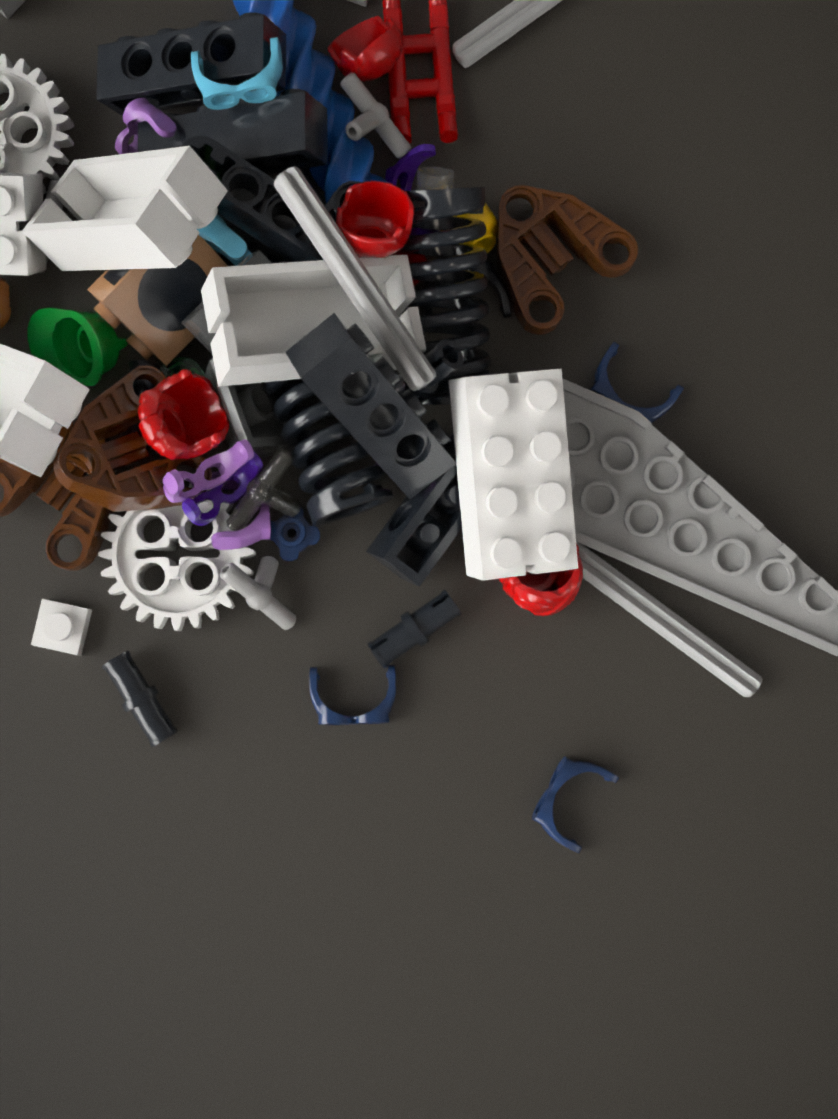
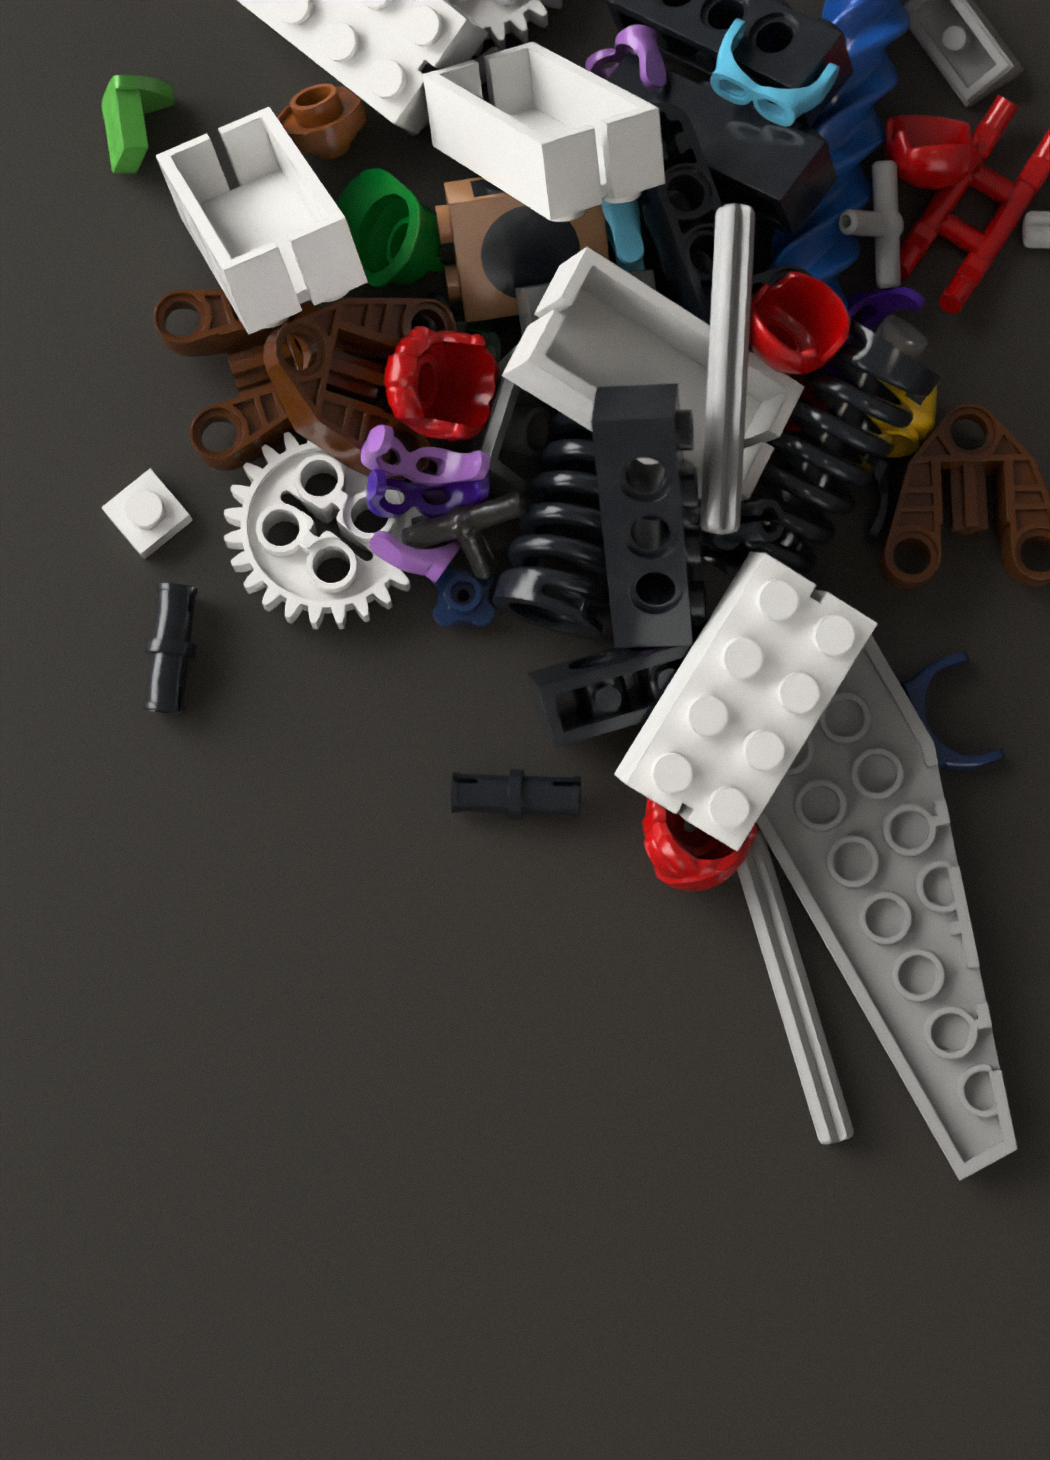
camera: 35 degrees right, 5 degrees down
(258, 591) = (381, 628): light grey piece -> none
(379, 715) = (404, 856): dark blue cap -> none
(544, 809) = (504, 1096): dark blue cap -> none

